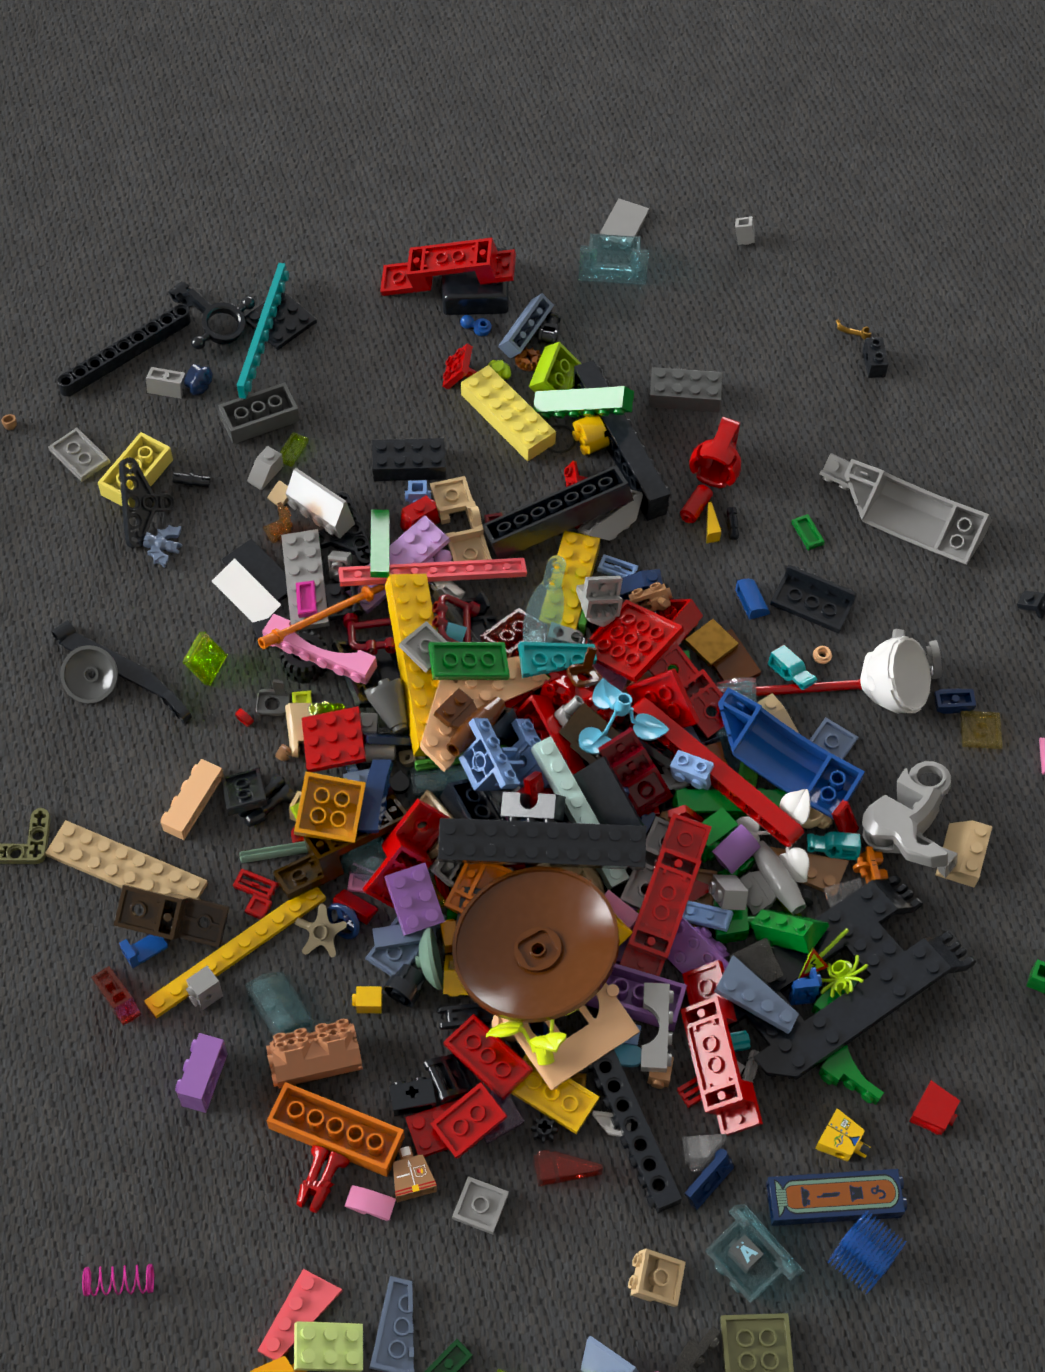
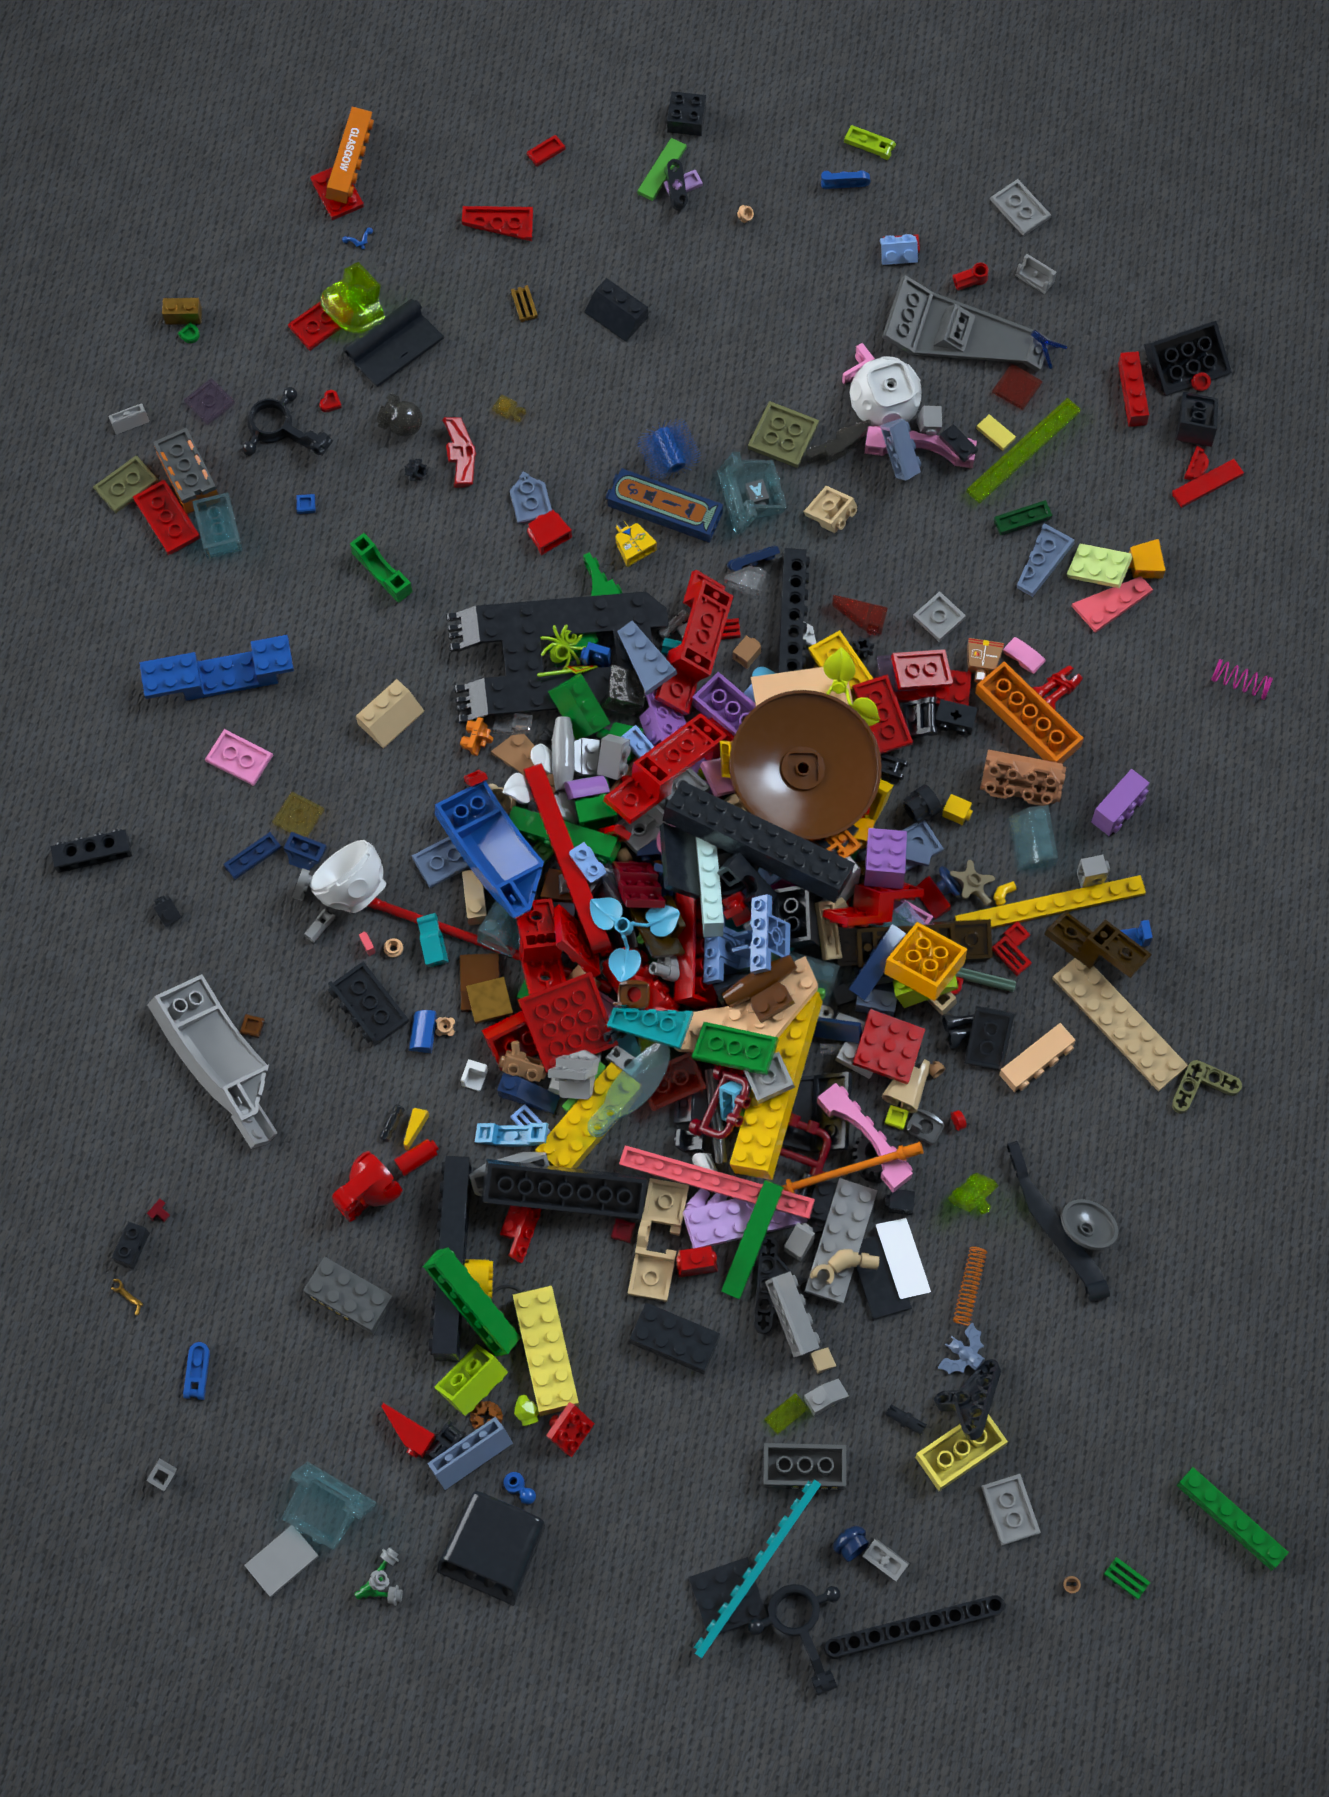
camera: 150 degrees left, 10 degrees up
(116, 995) = (1168, 906): clear red slope -> none
(178, 568) = (975, 1283): none -> orange piece
(281, 526) = (840, 1318): clear orange bracket -> none
(290, 941) = (1001, 891): none -> yellow arm
(296, 553) = (845, 1259): none -> tan piece
(306, 598) = (851, 1208): dark pink tile -> none
(324, 707) = (880, 1087): clear neon green pin -> none
(390, 703) = (822, 1058): dark grey cone -> none
(416, 491) = (686, 1280): medium blue brick -> none
(430, 960) = (894, 807): sand green dish -> none
(448, 258) = (522, 1553): red bracket -> none
(543, 216) = (379, 1581): none -> light grey plant
(583, 325) = (412, 1435): none -> red slope
(627, 551) = (511, 1135): none -> dark azure slope
(655, 1054) = (749, 652): light grey arch -> none
(688, 584) = (474, 1075): none -> white panel
(736, 607) = (441, 1022): none -> light nougat plate
(766, 304) = (197, 1371): none -> blue plate
(808, 532) = (325, 1081): green tile -> none
(836, 845) = (493, 764): teal piece -> none
(846, 645) = (367, 943): none -> coral tile
(871, 388) = (158, 1211): none -> dark red tile
(896, 548) = (252, 1026): none -> reddish brown tile
(899, 824) = (441, 749): light grey animal -> none
(977, 1141) = (529, 499): none -> sand blue tile
(995, 679) = (252, 855): none -> dark blue tile

